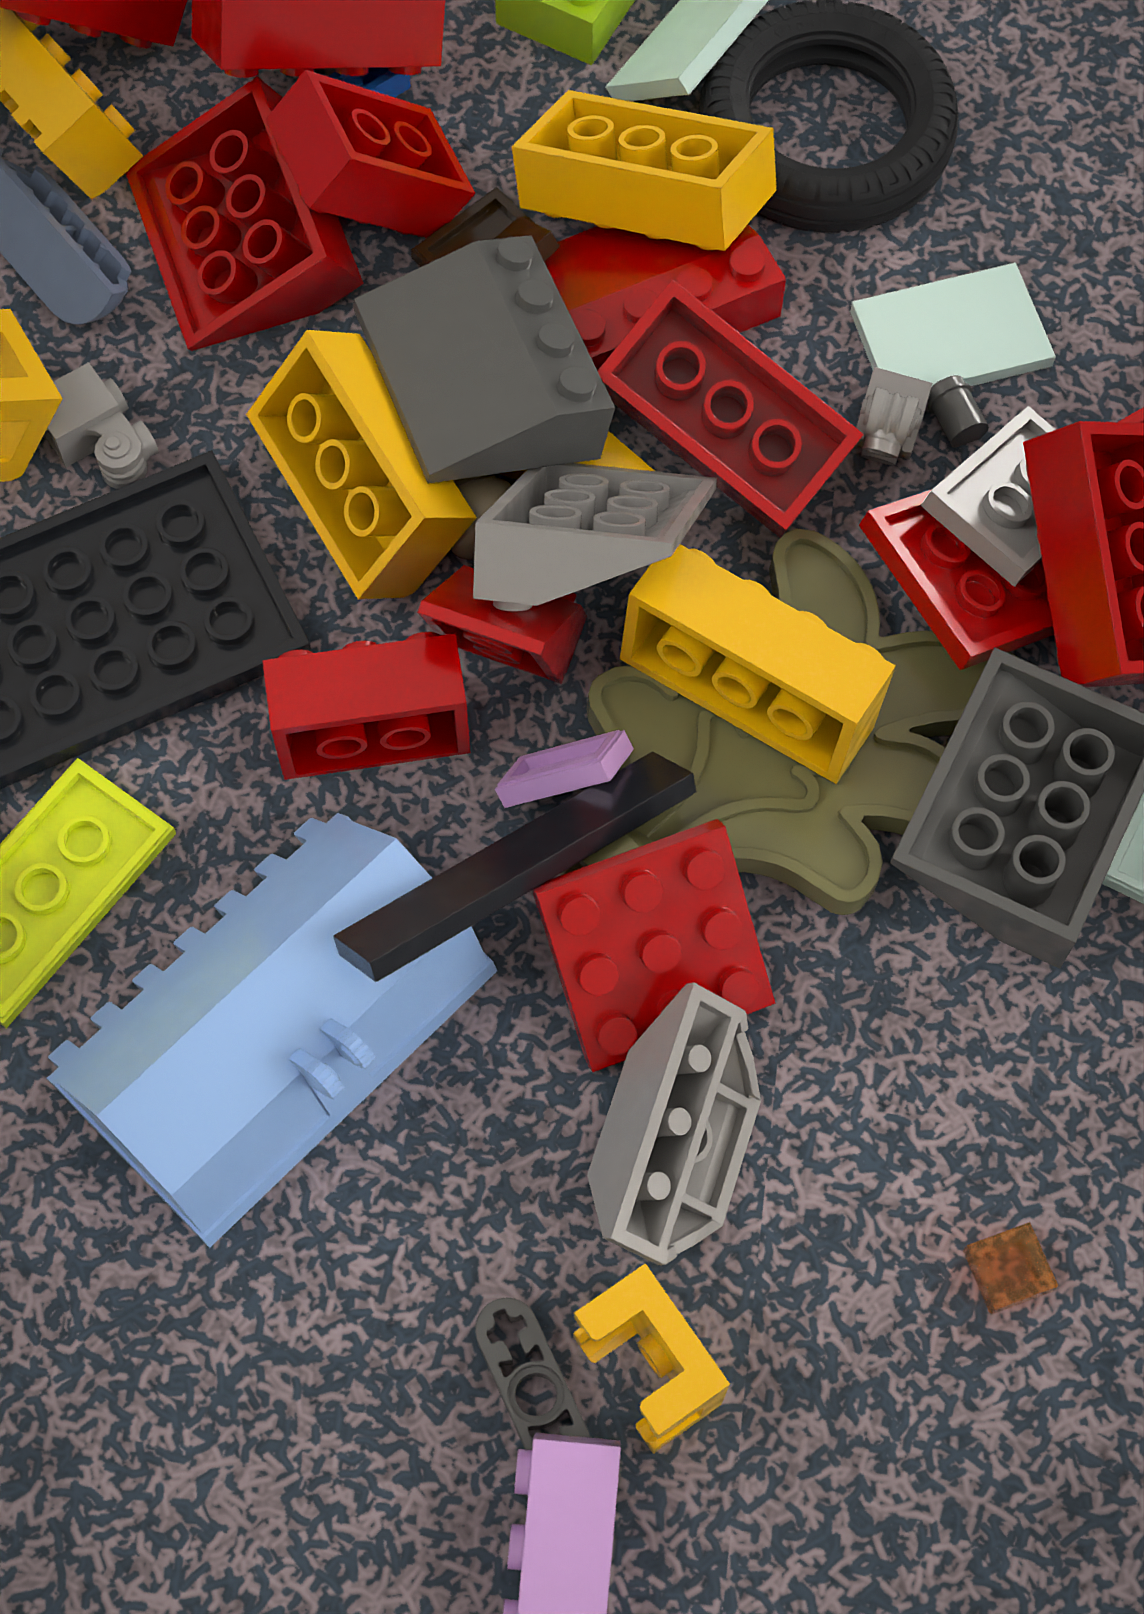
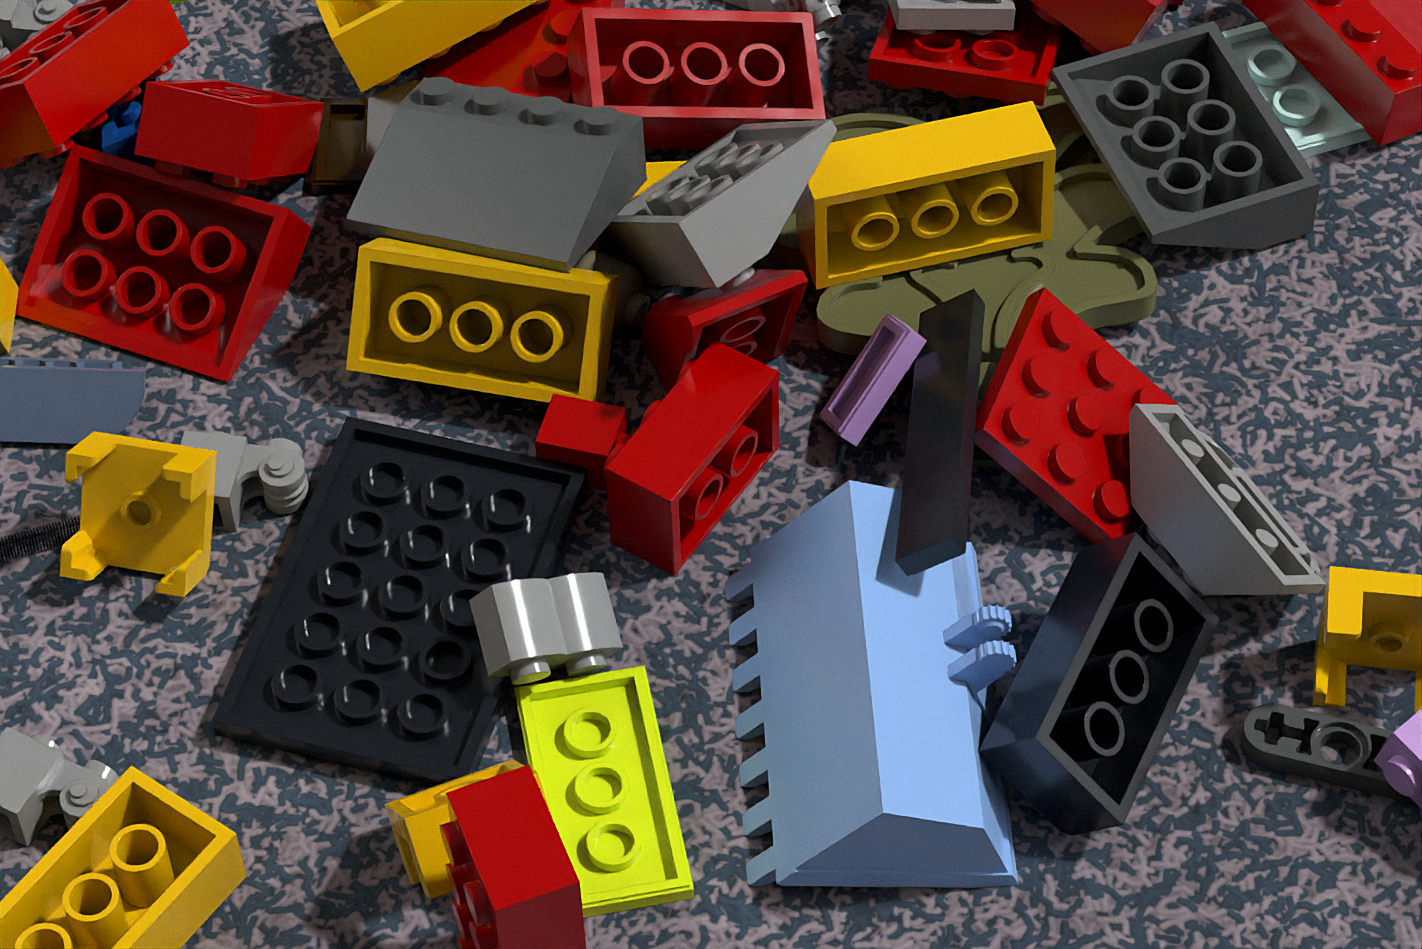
camera: 45 degrees left, 15 degrees down
(125, 736) = (546, 626): none -> light grey brick
(331, 611) = (582, 434): none -> red brick
(407, 1170) = (1100, 685): none -> black brick

